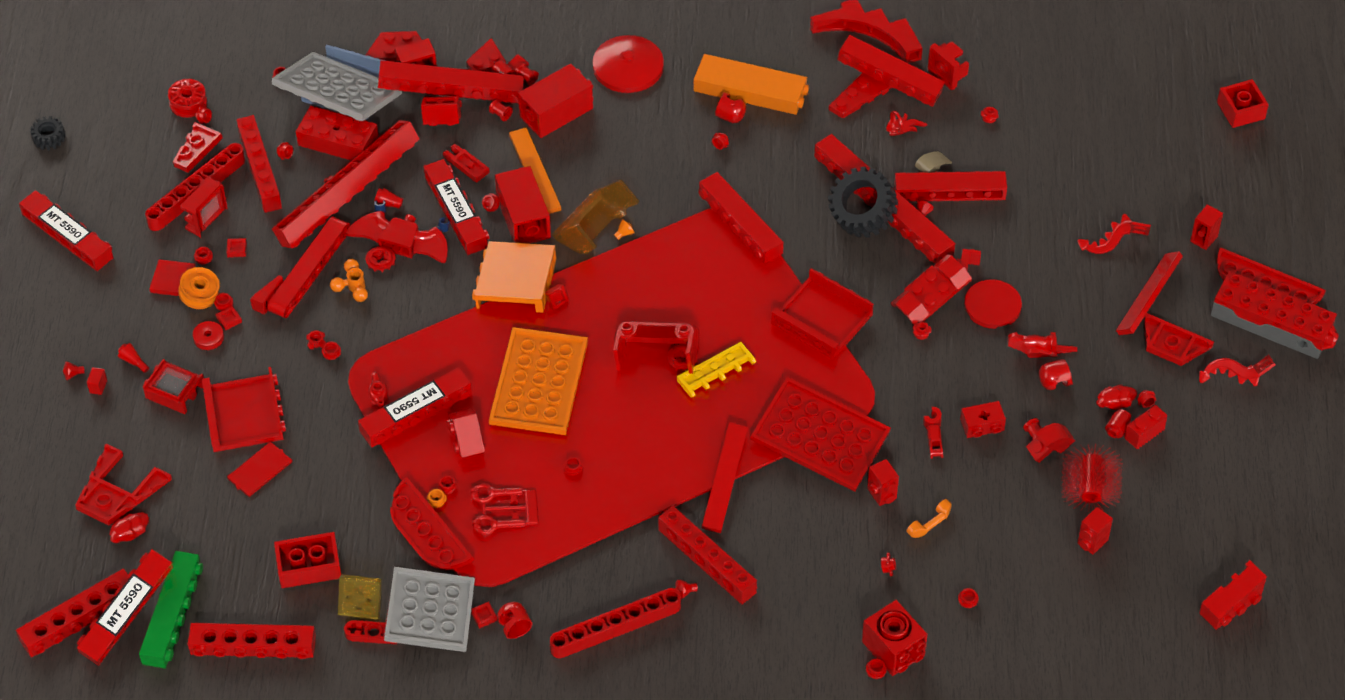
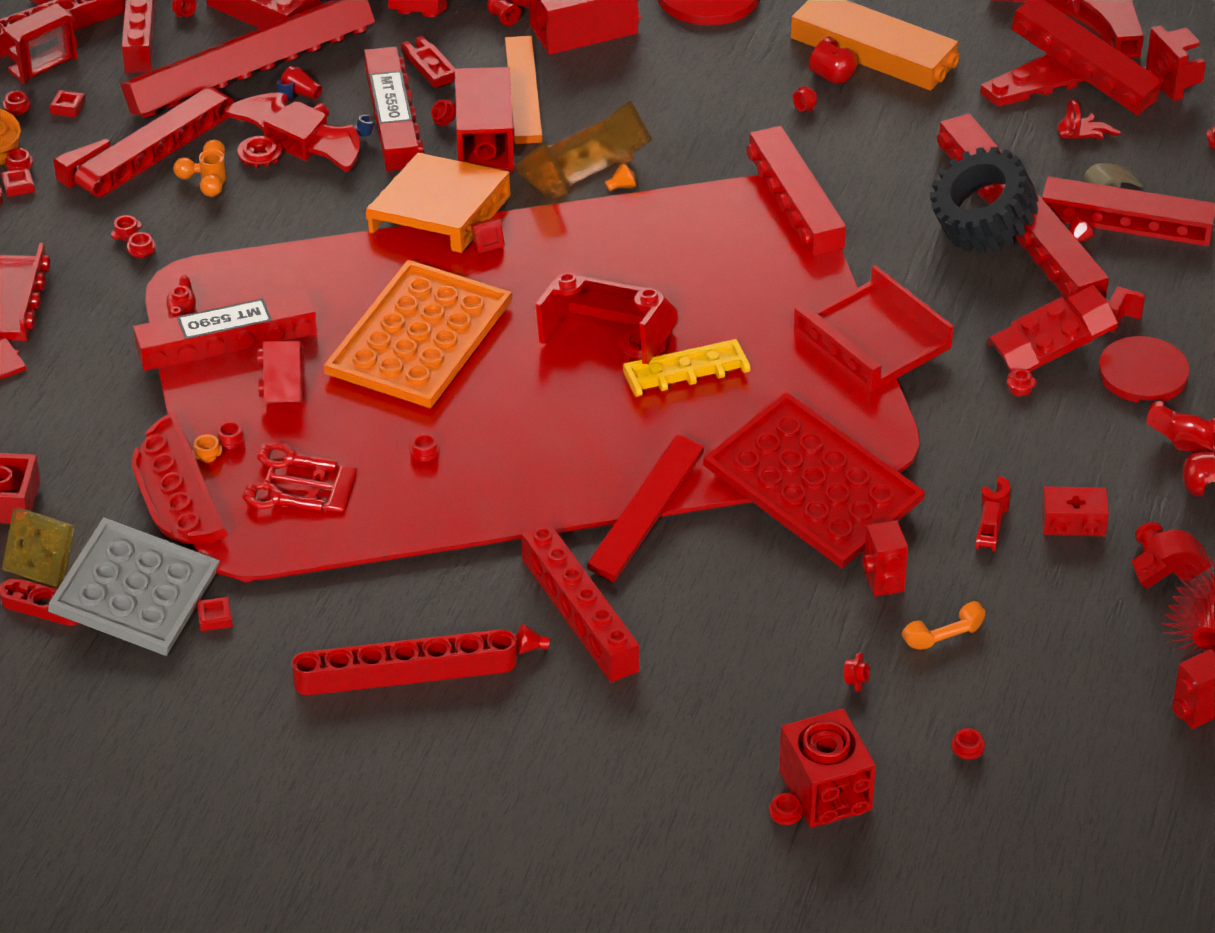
camera: 15 degrees right, 10 degrees down
(511, 614) = (251, 617): red helmet -> none

